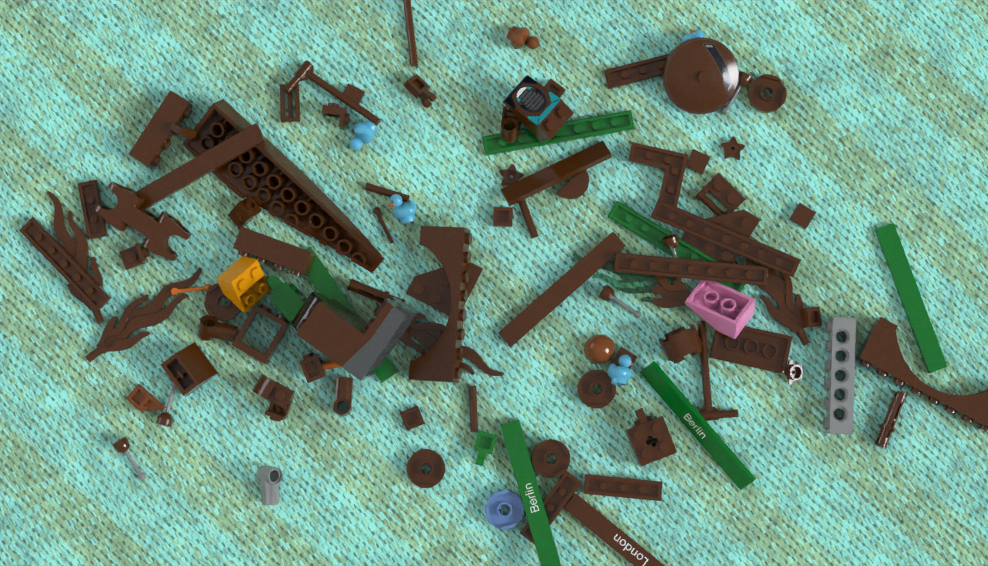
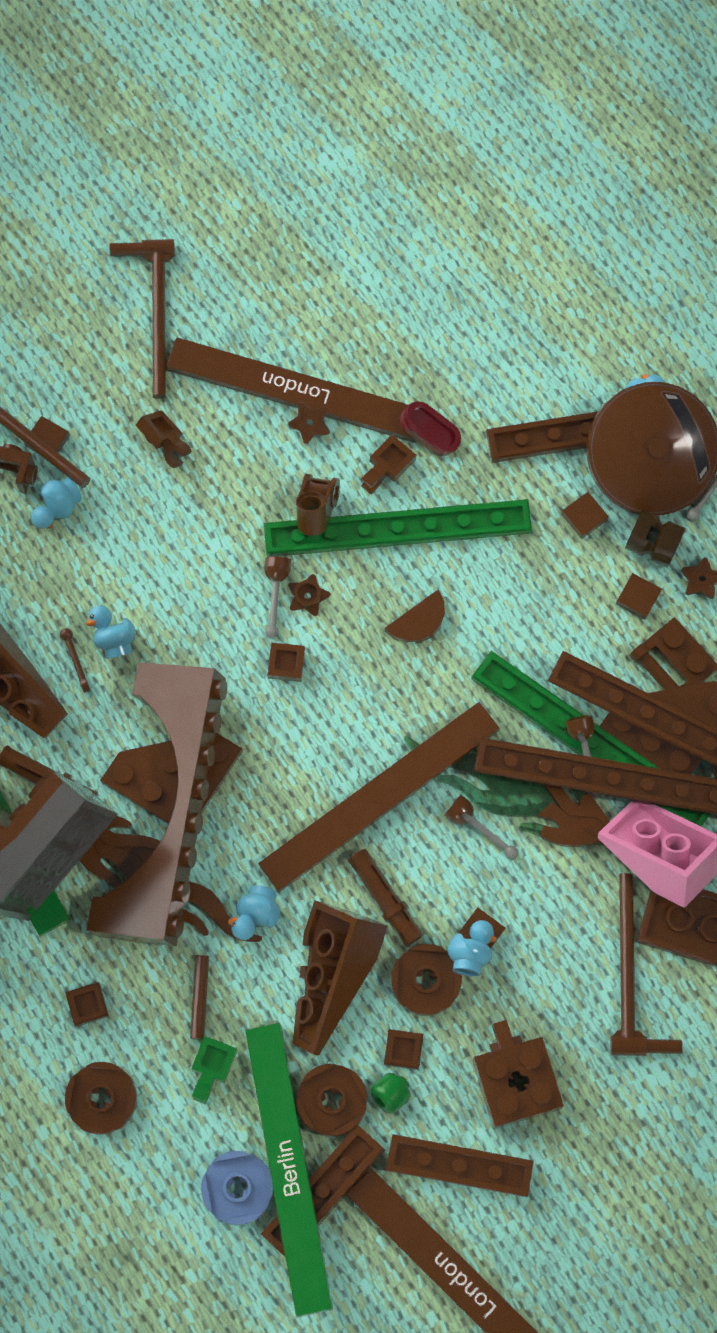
camera: 10 degrees right, 10 degrees down
(386, 192) = (84, 603): reddish brown piece -> none
(492, 55) = (287, 387): none -> reddish brown tile
(492, 164) = (276, 570): none -> hinge
(499, 358) = (254, 909): none -> medium azure animal
(506, 70) = (316, 415): none -> reddish brown plate
(521, 36) = (347, 362): dark orange animal -> none
(528, 219) = (330, 666): reddish brown piece -> none
(538, 108) = (363, 479): slope -> none
(548, 381) = (339, 959): none -> reddish brown wedge
(556, 173) = (387, 594): reddish brown tile -> none
(572, 72) = (430, 428): none -> dark red tile
(573, 349) = (394, 909): none -> reddish brown pin
(582, 451) = (391, 1092): none -> green piece
(587, 427) = (403, 1049): none -> reddish brown tile
(599, 349) = (438, 908): dark orange hair -> none
(663, 116) = (584, 515): none -> reddish brown tile
(670, 161) = (589, 590): reddish brown plate -> none
(681, 343) = (586, 908): reddish brown brick -> none
(697, 425) = (607, 1063): green tile -> none
(711, 130) = (665, 544): none -> dark brown wheel

